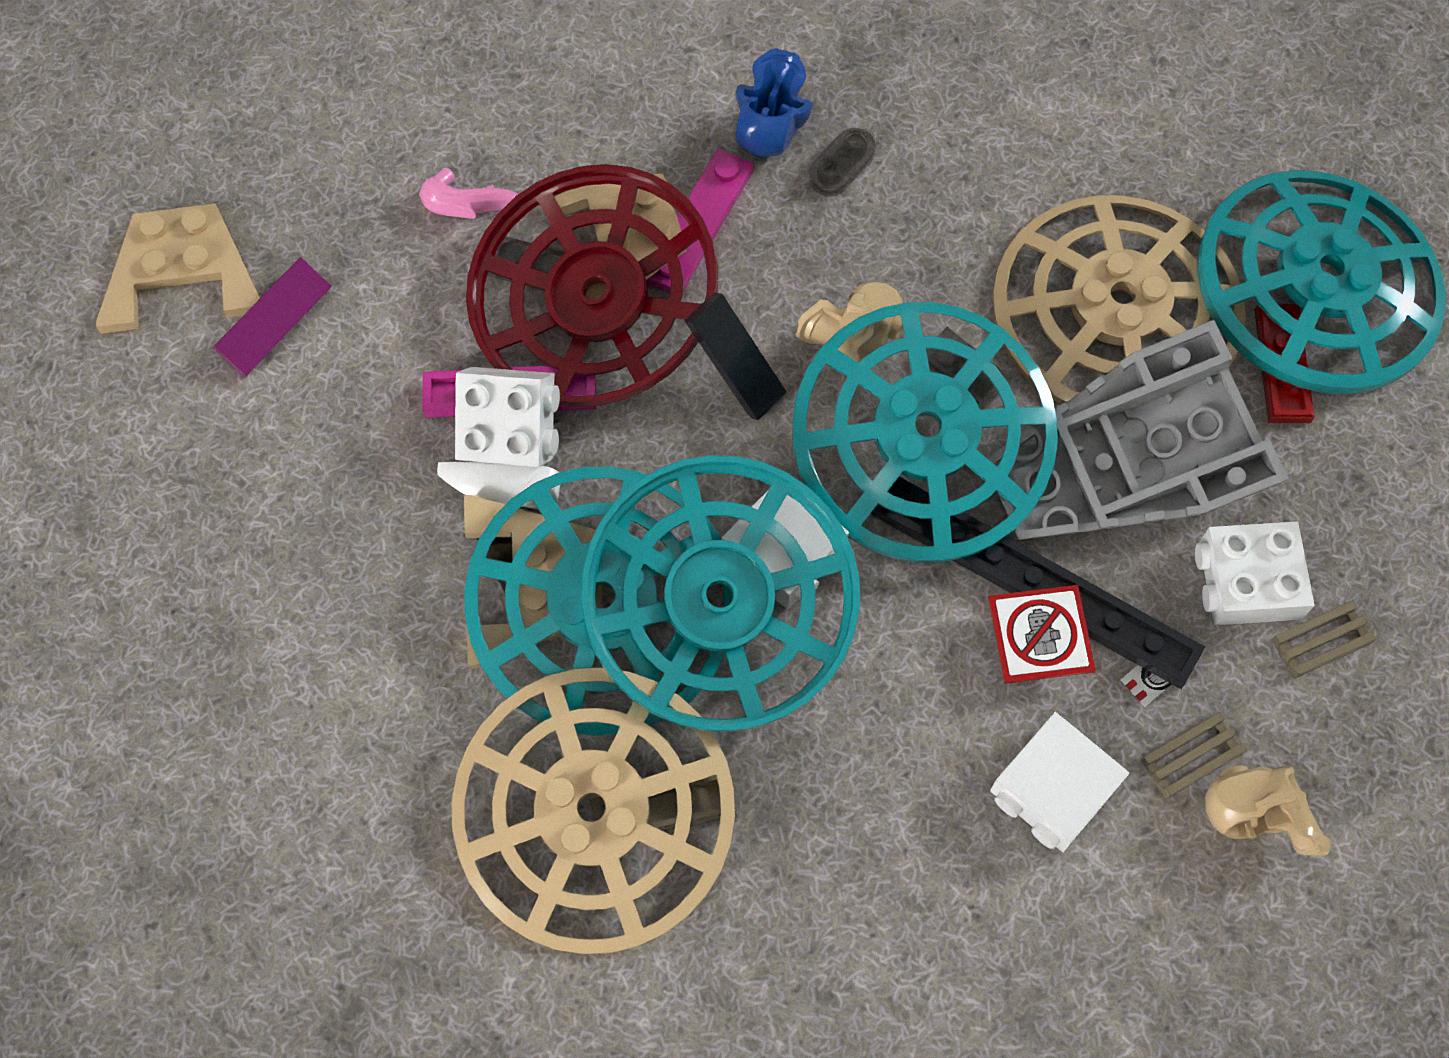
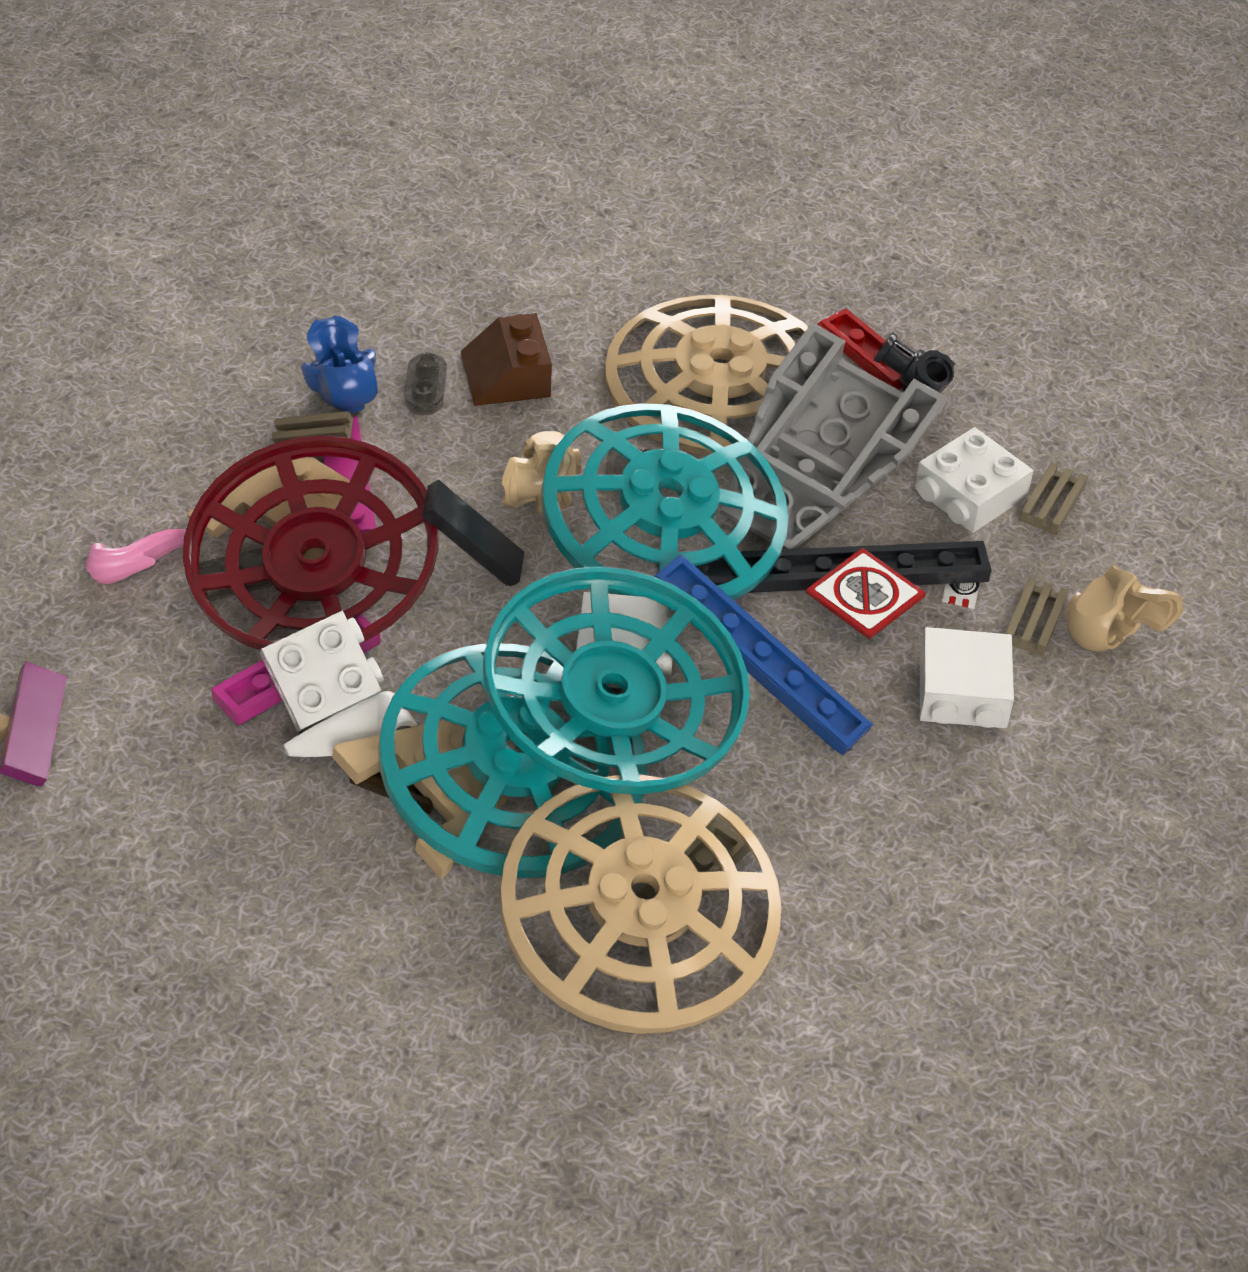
camera: 40 degrees left, 20 degrees down
(675, 149) = (328, 424): none -> dark tan tile
(890, 641) = (774, 663): none -> blue tile
(927, 183) = (508, 361): none -> reddish brown slope
(1298, 413) = (928, 367): none -> black connector
(1317, 290) = (851, 274): teal dish -> none

